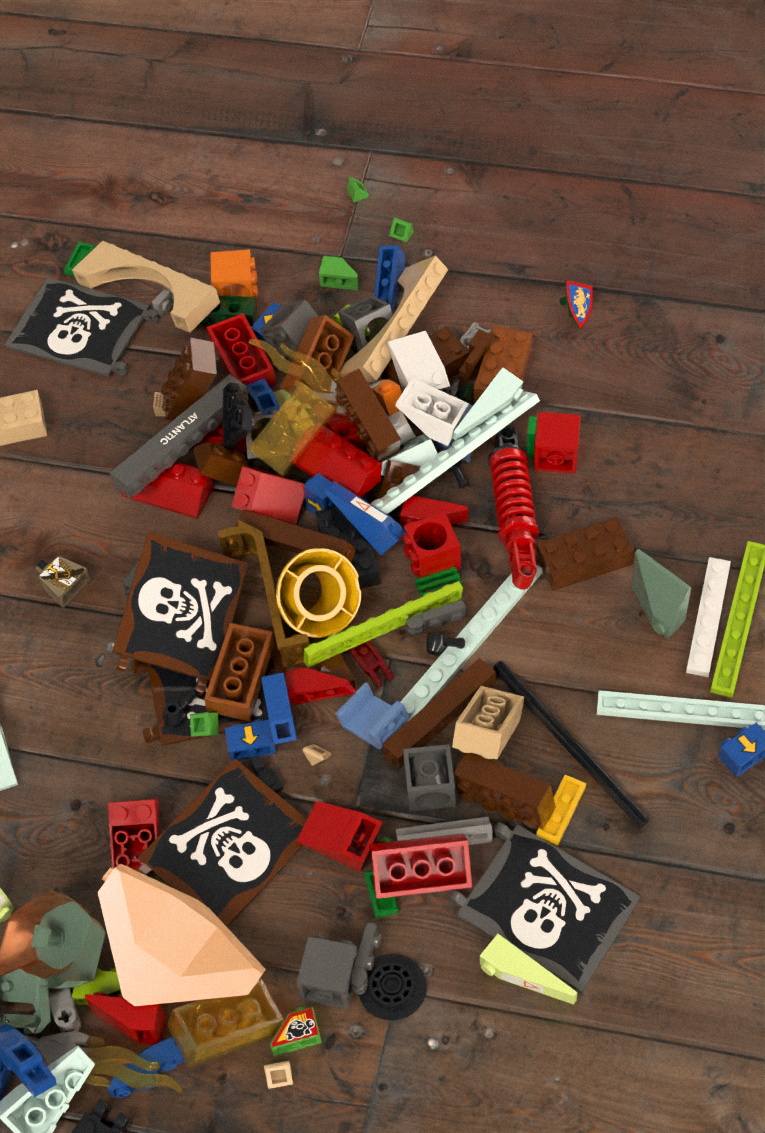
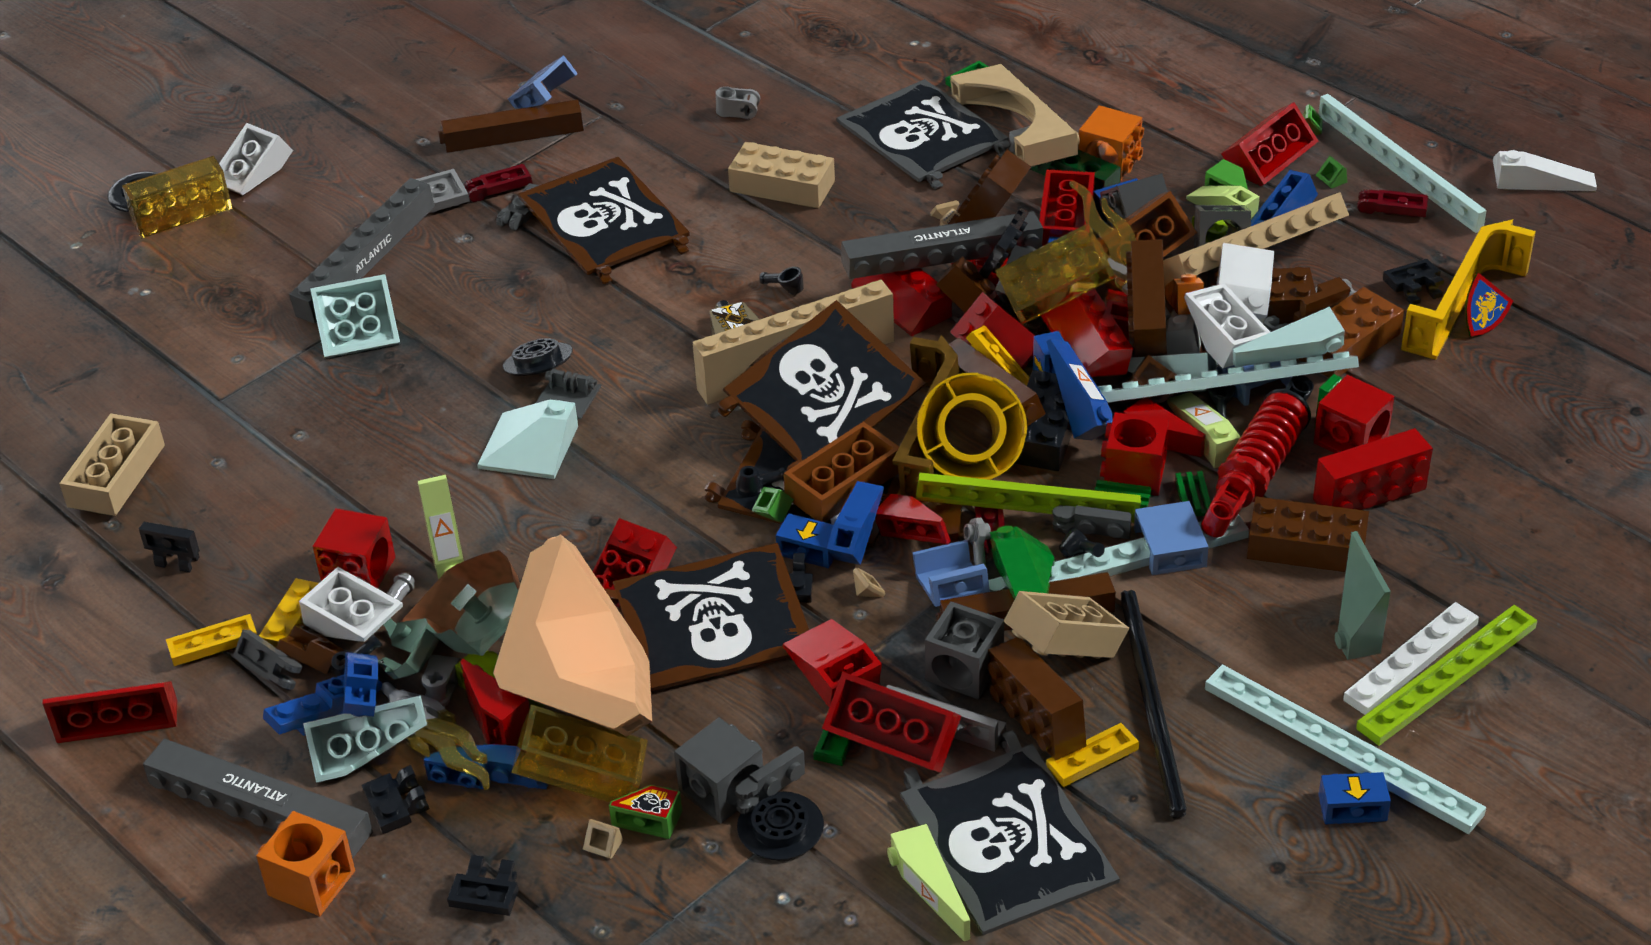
camera: 30 degrees right, 15 degrees down
(75, 514) = (790, 279): none -> black bar
(86, 616) = (729, 353): none -> tan arch
(147, 395) = (941, 209): none -> tan slope
(274, 509) = (989, 346): none -> yellow plate
(344, 224) = (1272, 145): none -> red slope
(345, 291) = (1225, 196): none -> yellowish green slope
(369, 673) = (976, 533): none -> light grey piece
(421, 684) = (1021, 560): none -> green wedge
(443, 199) = (1402, 163): none -> light aqua plate
(459, 237) = (1392, 202): none -> dark red hinge
(480, 504) = (1219, 432): none -> yellowish green slope
(486, 546) = (1191, 480): none -> green tile
(498, 601) = (1172, 537): none -> medium blue panel
(512, 295) = (1412, 276): none -> black plate
(535, 167) = (1534, 172): none -> white wedge
(559, 246) = (1495, 247): none -> yellow panel
(598, 483) = (1374, 472): none -> red brick

